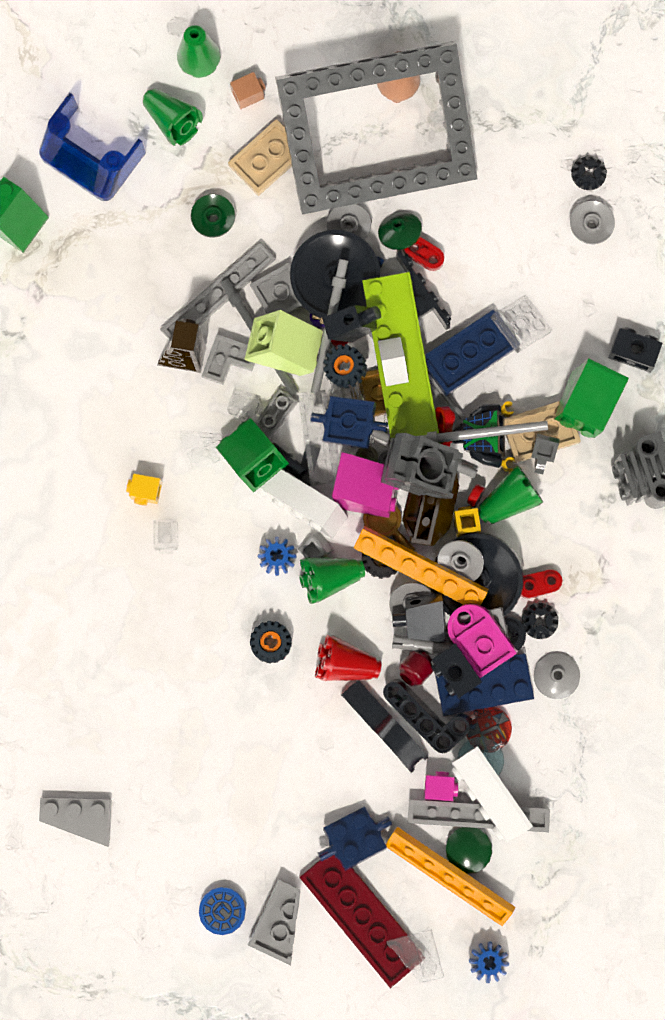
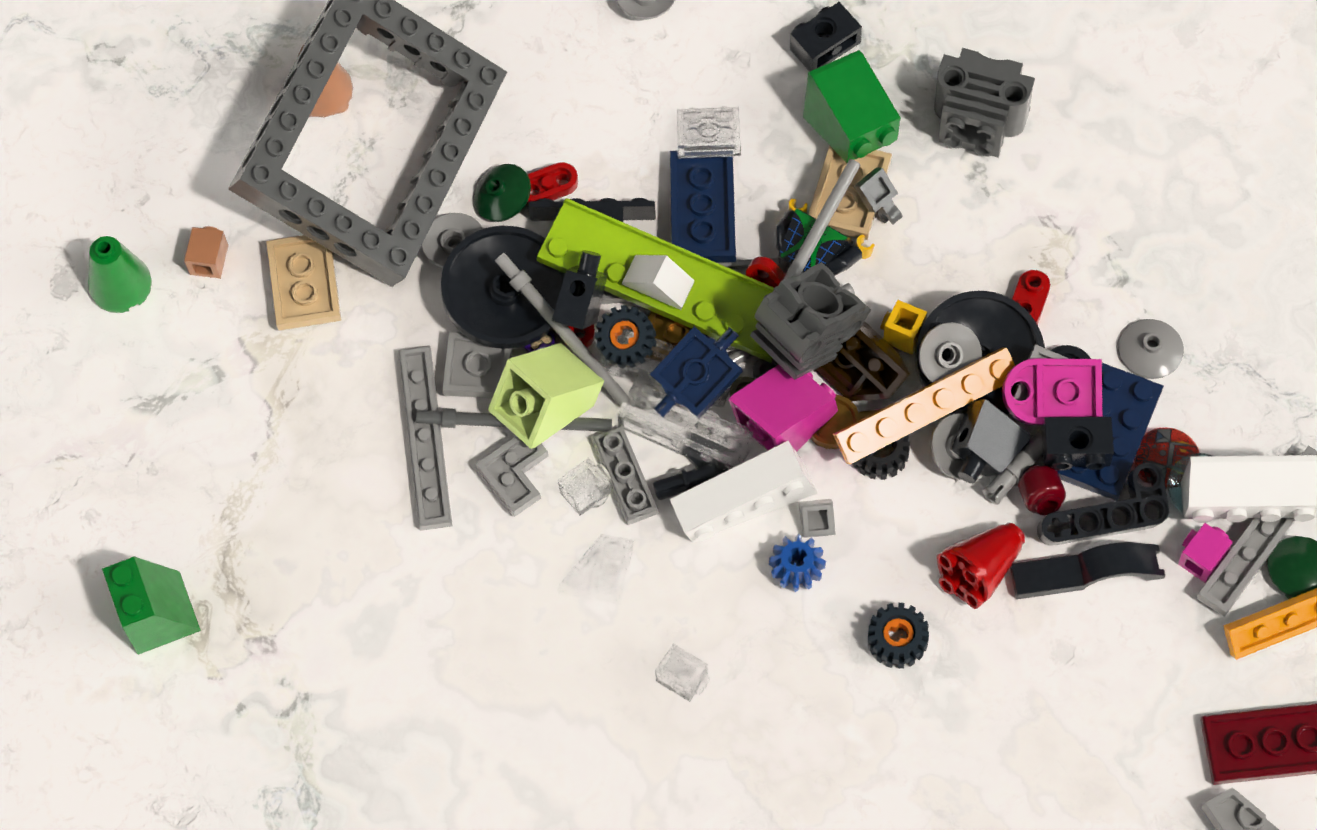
camera: 55 degrees left, 15 degrees down
(96, 176) = (144, 490): clear blue windscreen -> none
(144, 489) = (606, 664): yellow brick -> none
(173, 116) = (169, 349): green cone -> none
(186, 347) = (474, 495): dark brown wedge -> none
(212, 205) = (324, 369): dark green dish -> none
(251, 455) = (656, 503): green slope -> none
(328, 576) = (862, 520): green cone -> none
(354, 838) = (1206, 685): dark blue plate -> none
(476, 495) = (876, 300): red tile -> none
(509, 498) = (907, 260): green cone -> none
(539, 631) = (1065, 335): black gear -> none

